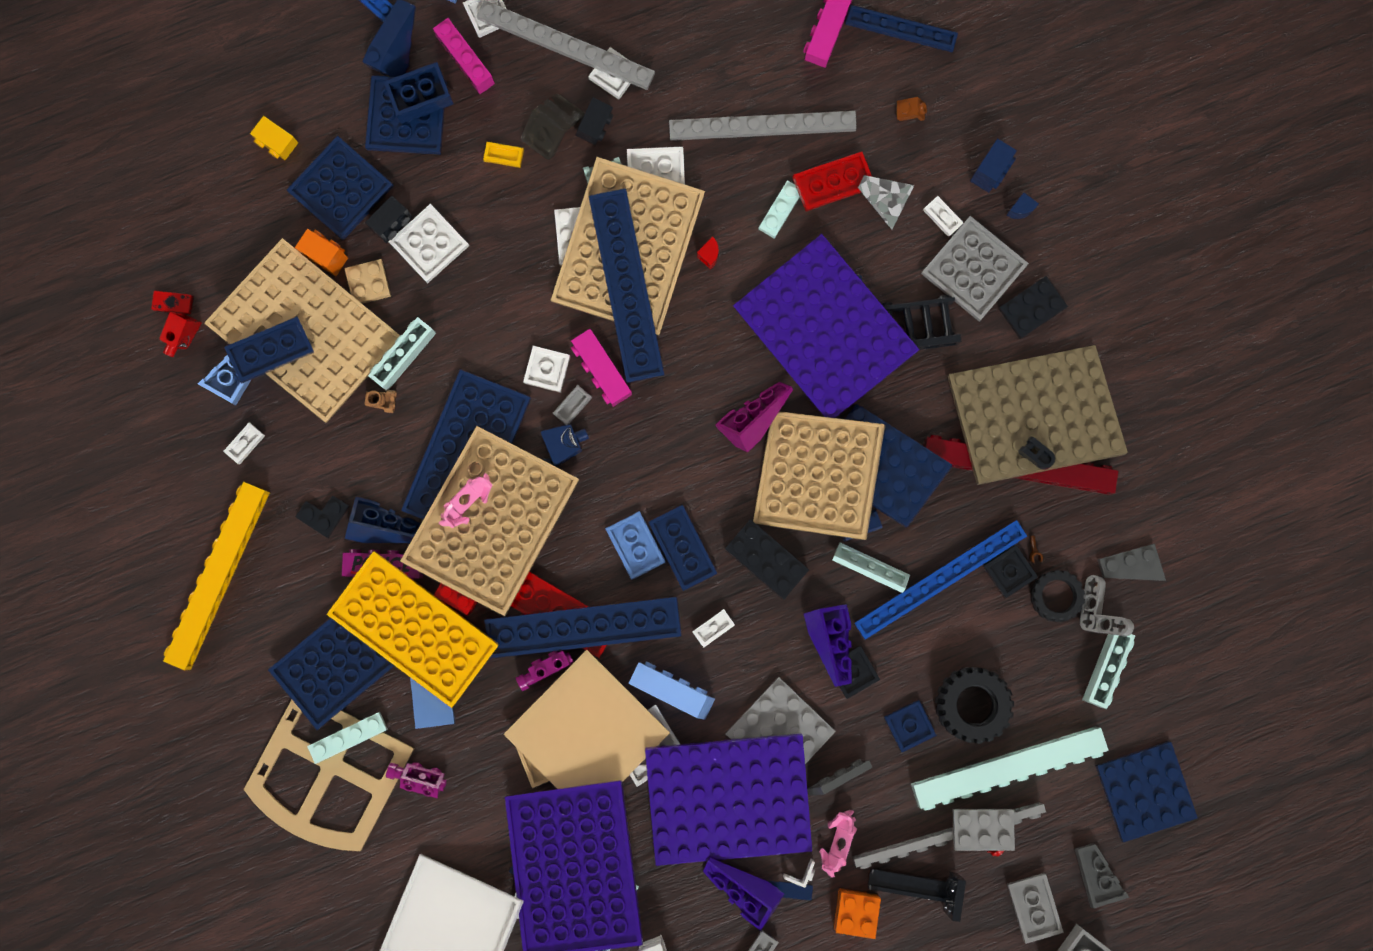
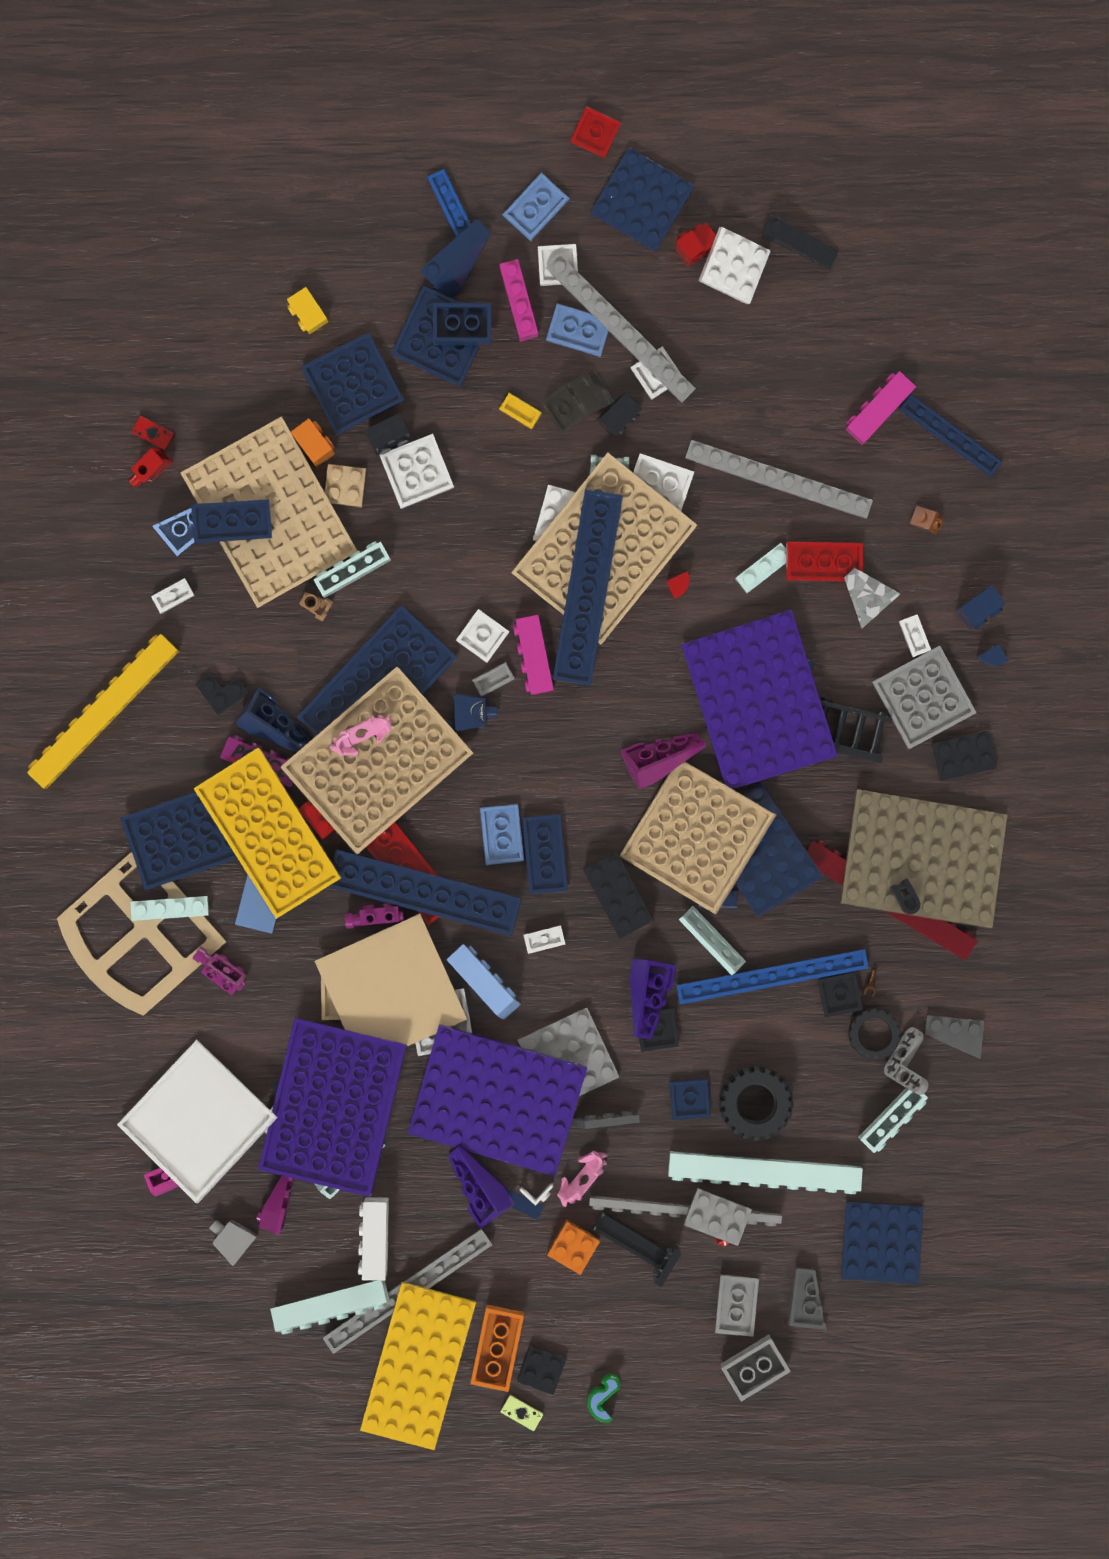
camera: 15 degrees right, 5 degrees up
(527, 64) = (577, 330): none -> medium blue tile

